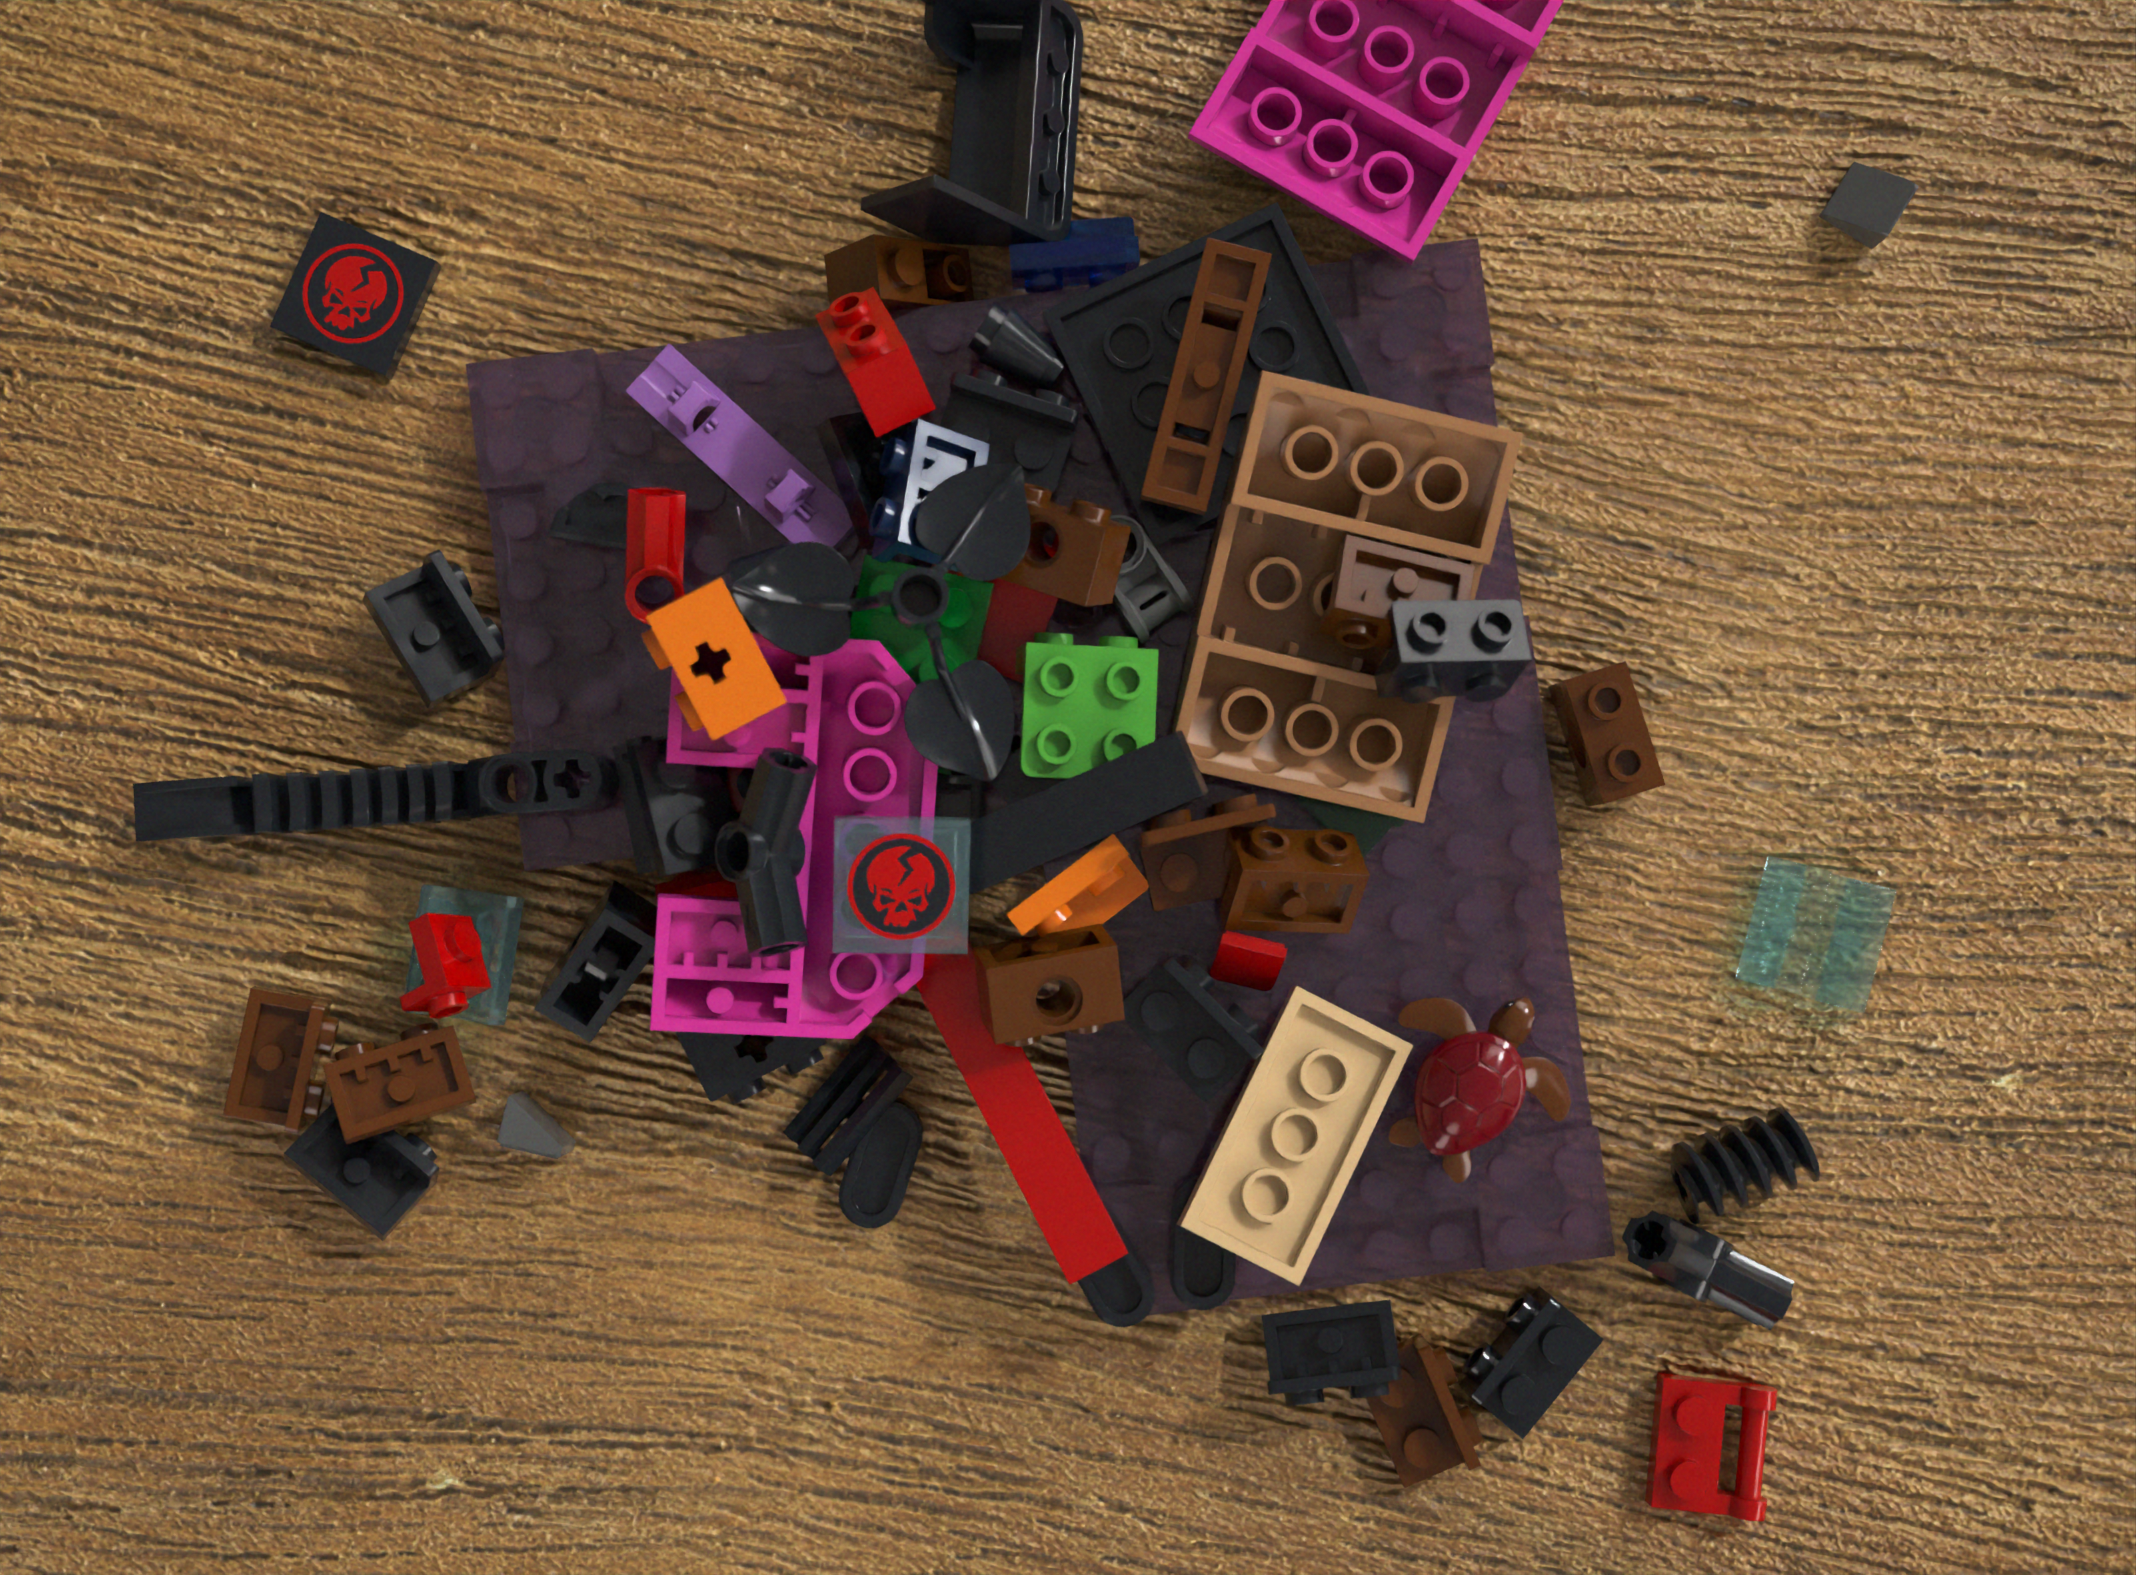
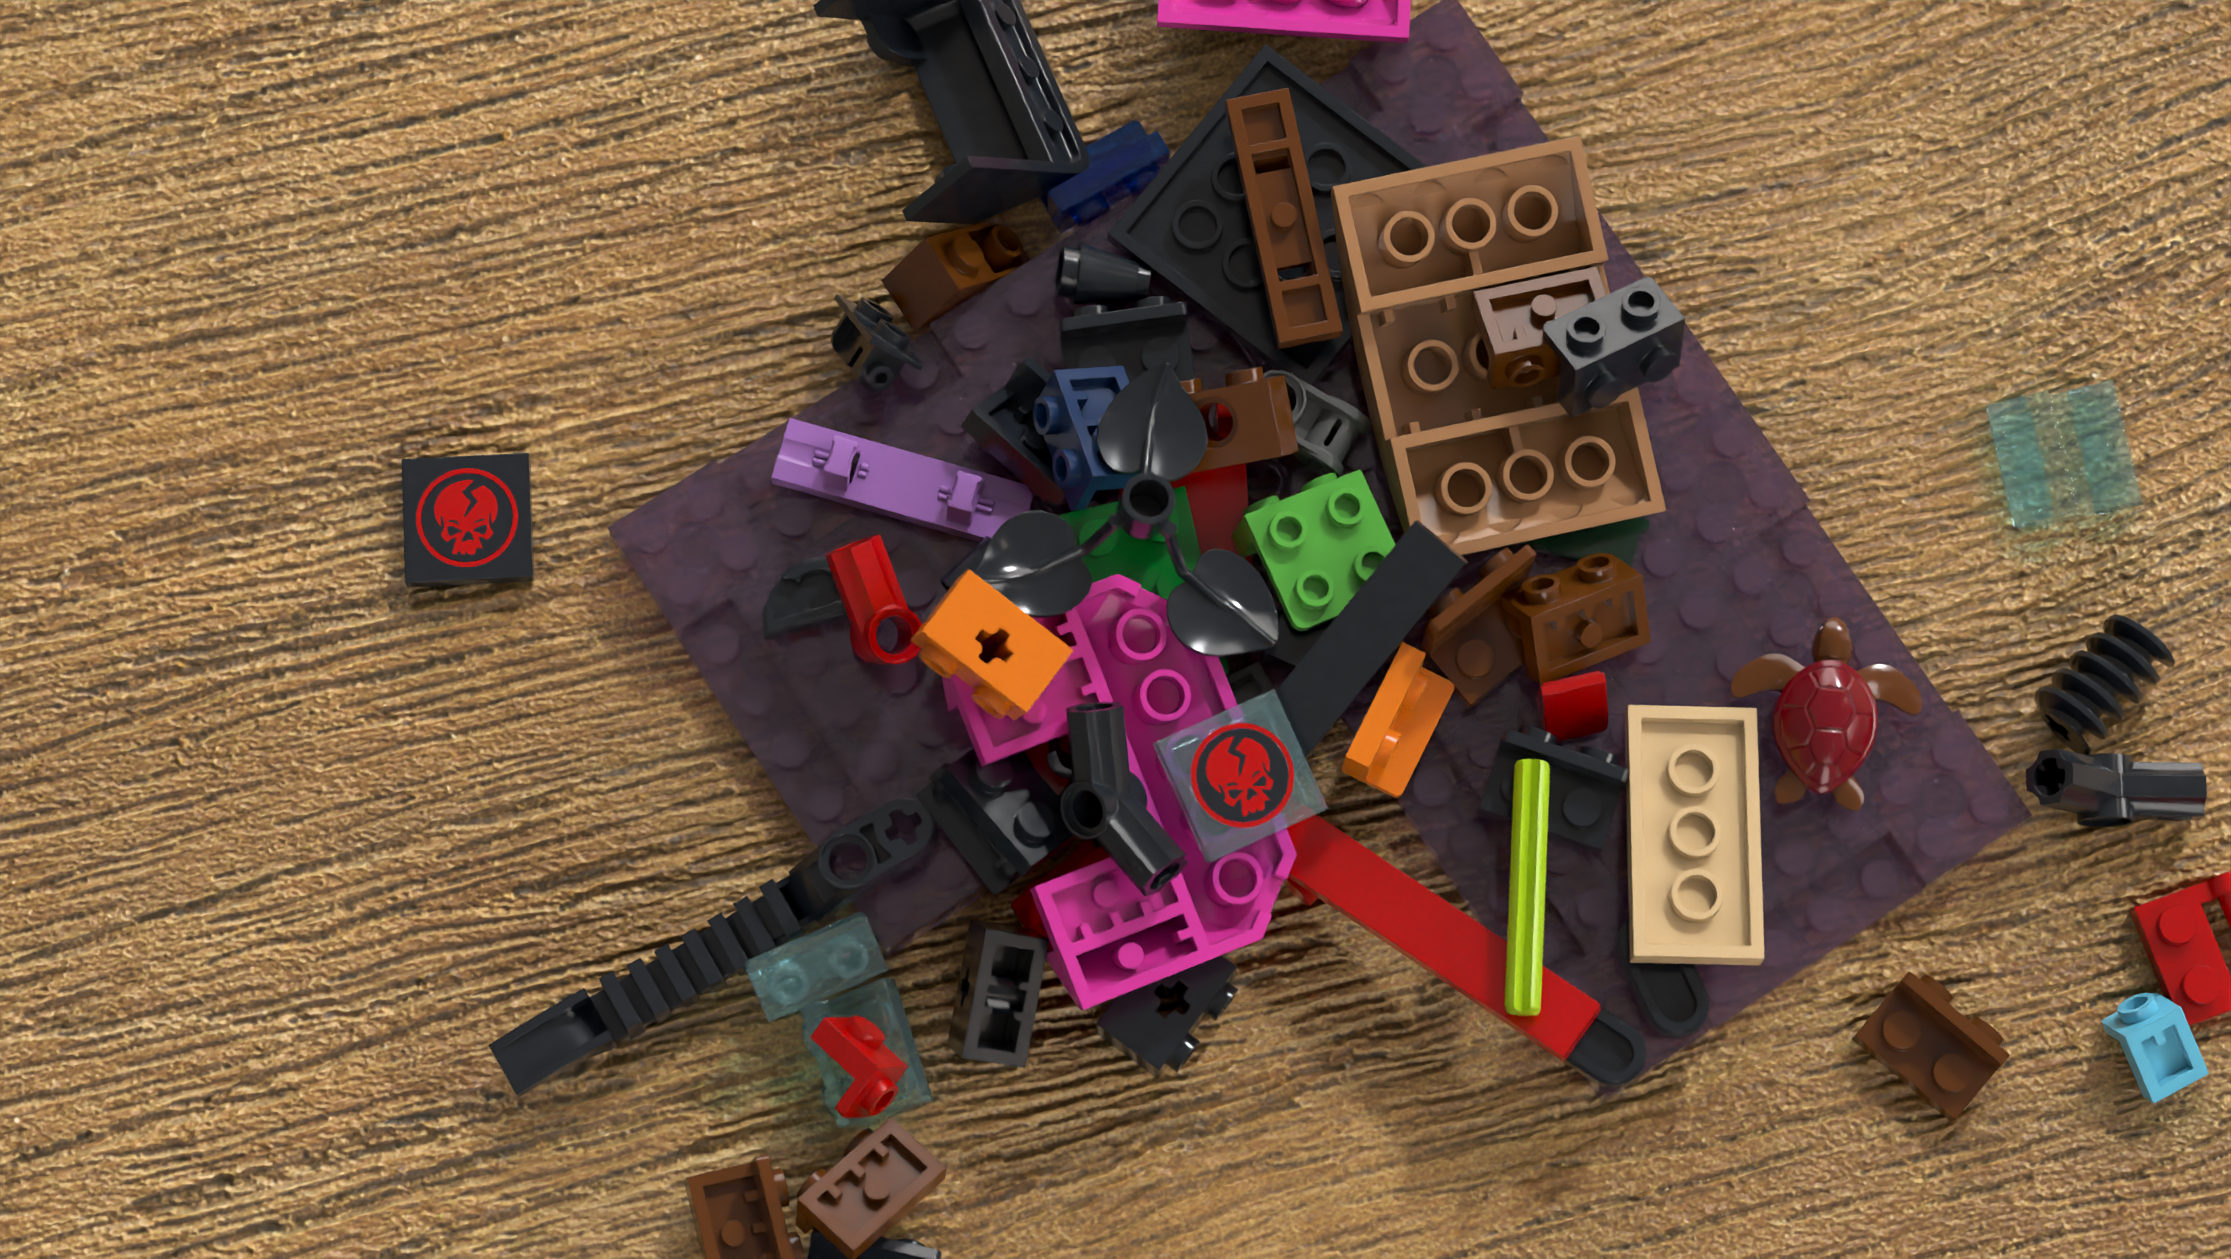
camera: 25 degrees left, 10 degrees down
(436, 629) = (695, 776): black bracket -> none
(451, 858) = (815, 966): none -> clear light blue bracket
(532, 1129) = (1007, 1184): dark grey slope -> none
(785, 310) = (871, 343): none -> black hinge
(842, 1098) = (1271, 1021): black tile -> none
(875, 361) = (988, 341): red brick -> none
(881, 1167) = (1336, 1064): black tile -> none
(1016, 969) = (1376, 815): reddish brown brick -> none
(1115, 1113) = (1527, 887): none -> lime axle
(1332, 1349) = (1827, 1024): black bracket -> none
(1528, 1360) = (2008, 952): black bracket -> none
(1606, 734) = (1787, 367): reddish brown brick -> none
(1619, 1510) = (2156, 1044): none -> medium azure bracket

